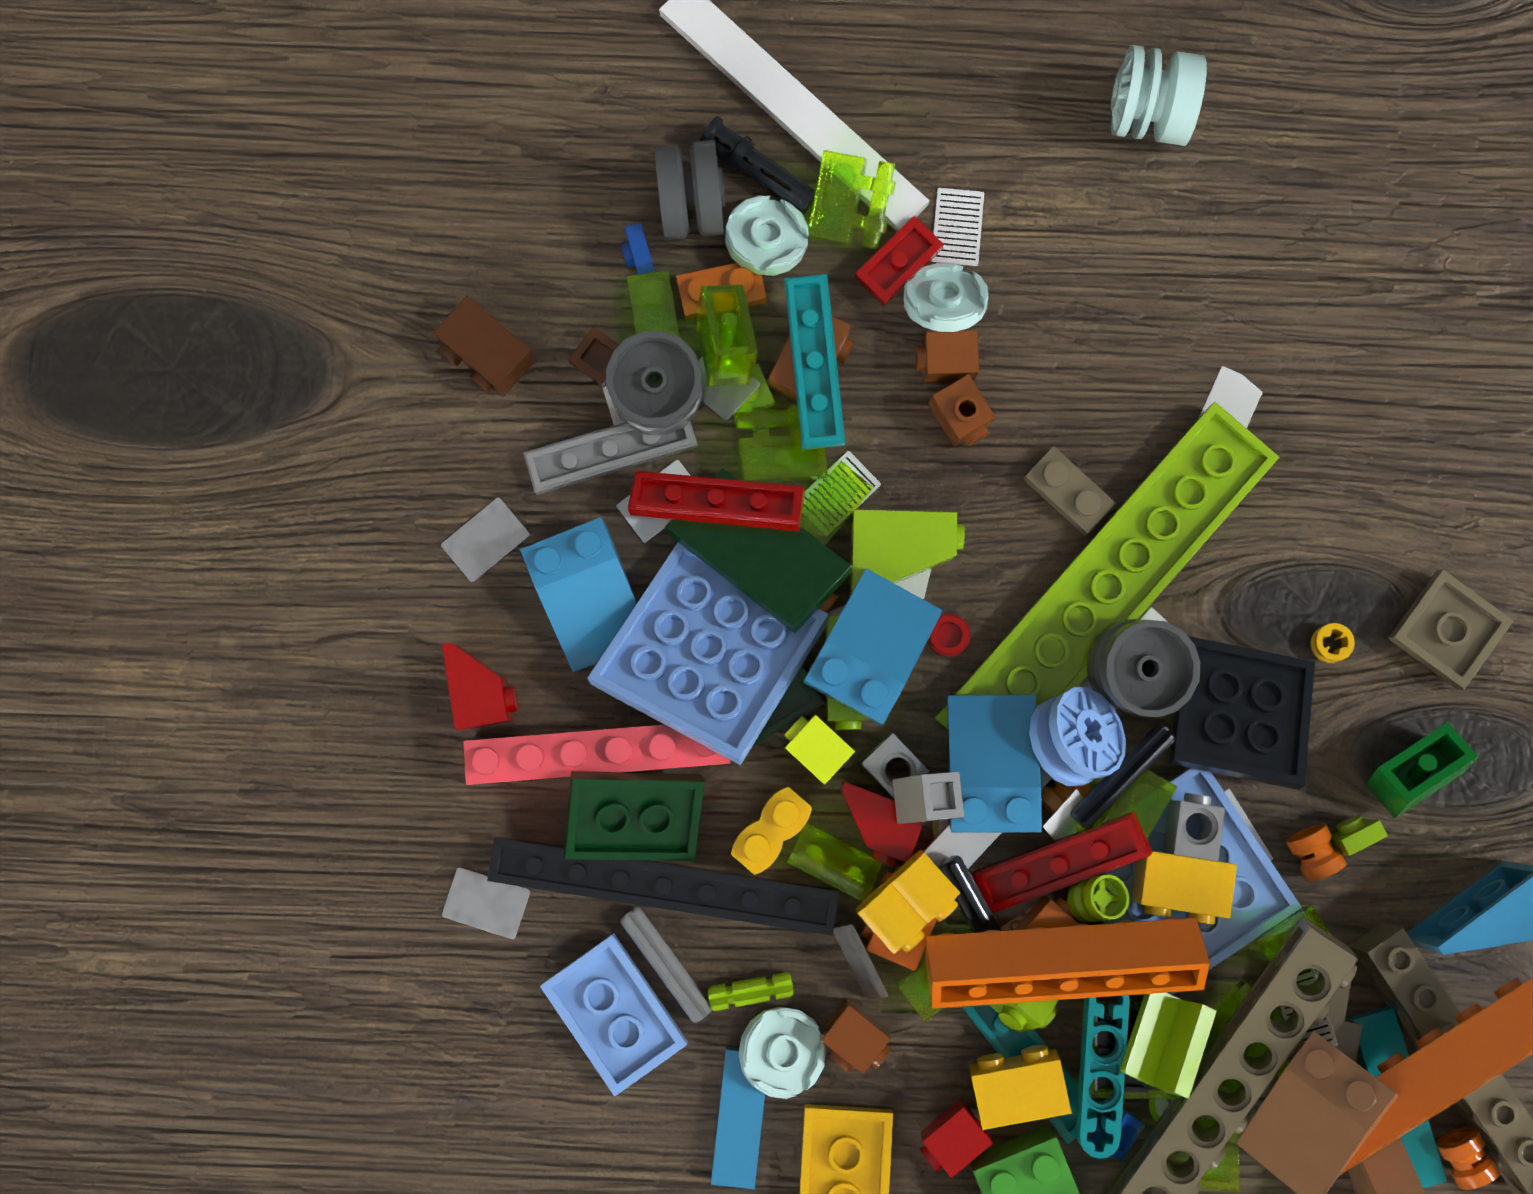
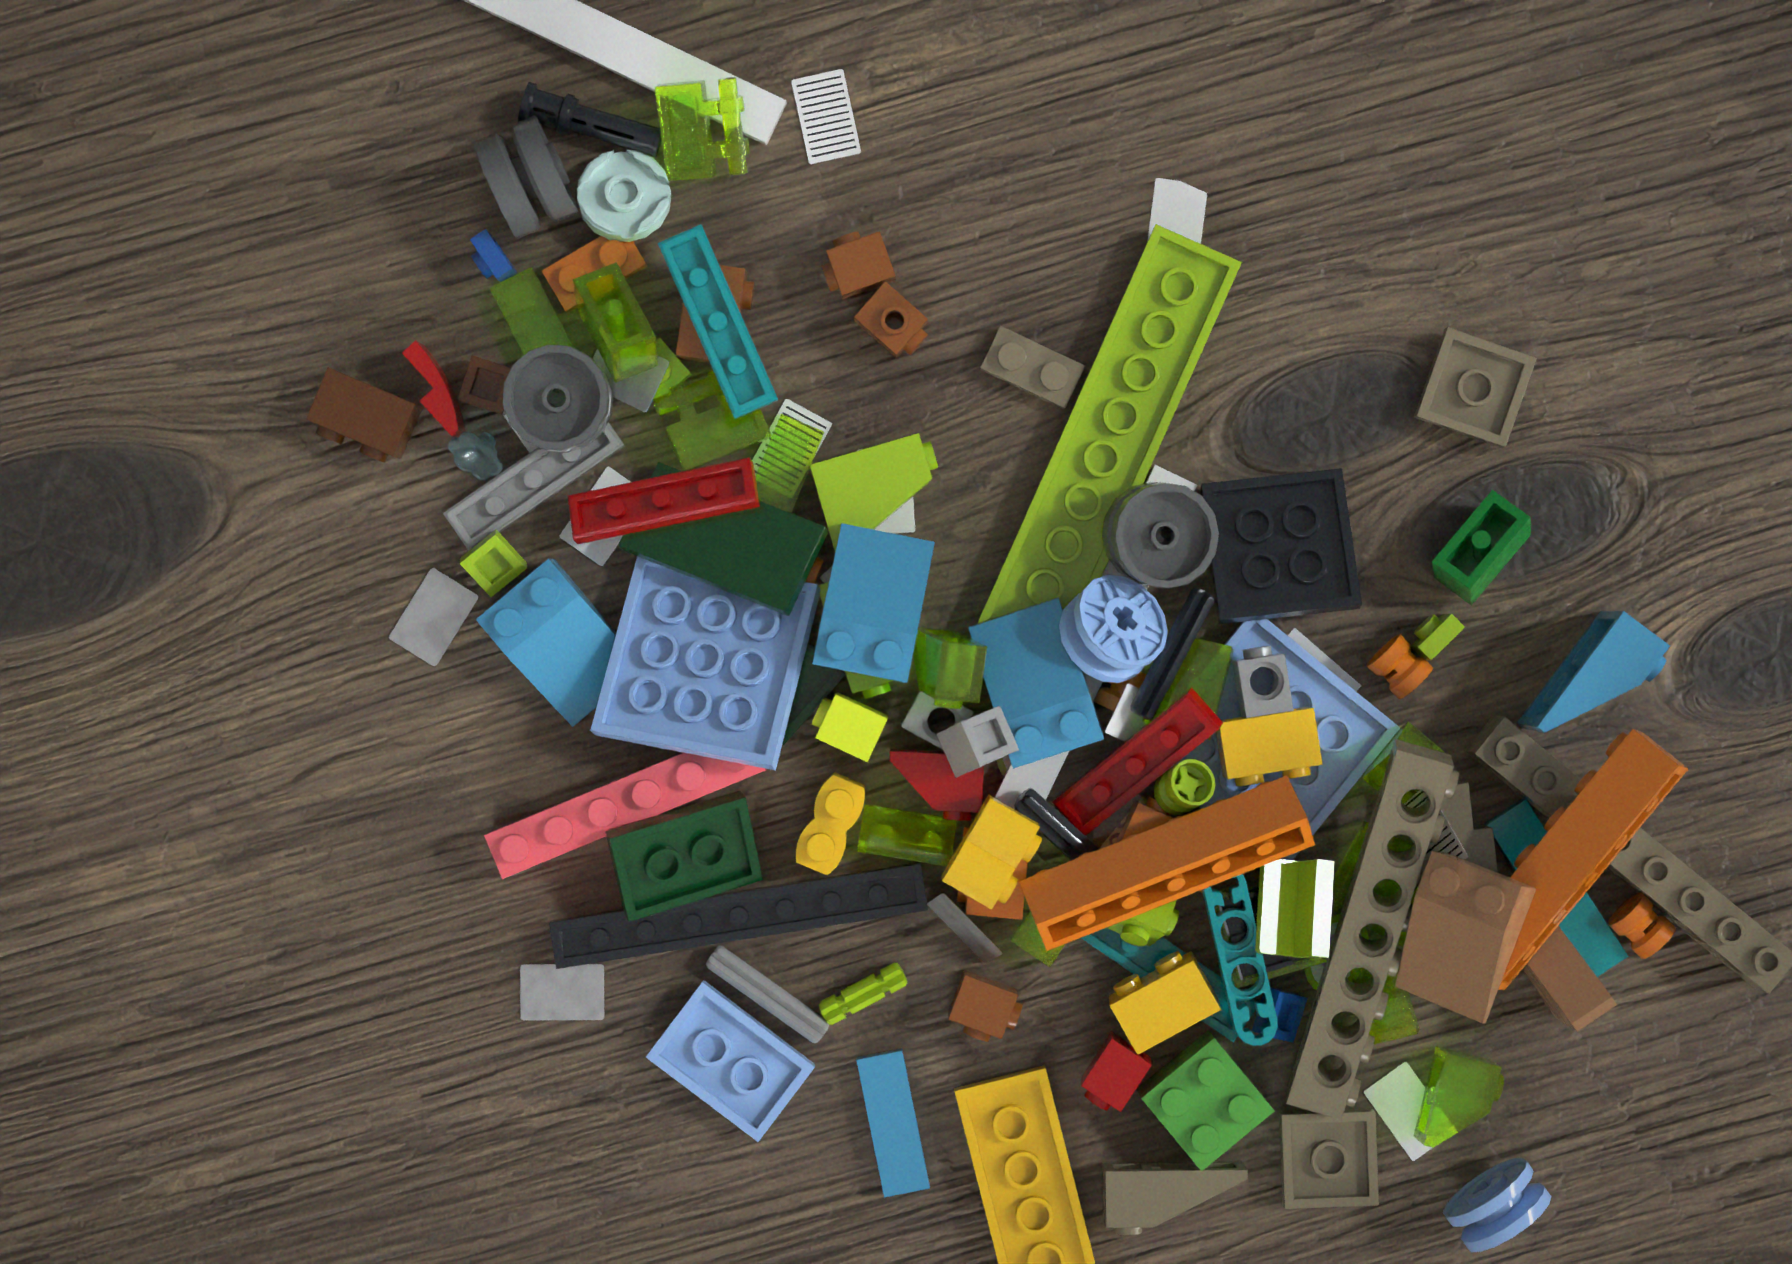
camera: 20 degrees left, 5 degrees up
(476, 691) = (479, 778): red slope -> none
(551, 508) = (493, 563): none -> lime plate
(554, 353) = (441, 399): none -> red slope
(568, 411) = (476, 454): none -> clear light blue plant
(782, 1052) = (914, 1044): light aqua tile -> none
(898, 261) = (774, 177): red plate -> none
(922, 725) = (949, 666): none -> clear neon green slope
(945, 297) = (836, 203): light aqua tile -> none
(949, 636) = (952, 562): red tile -> none
(1342, 633) = (1367, 450): yellow bush -> none

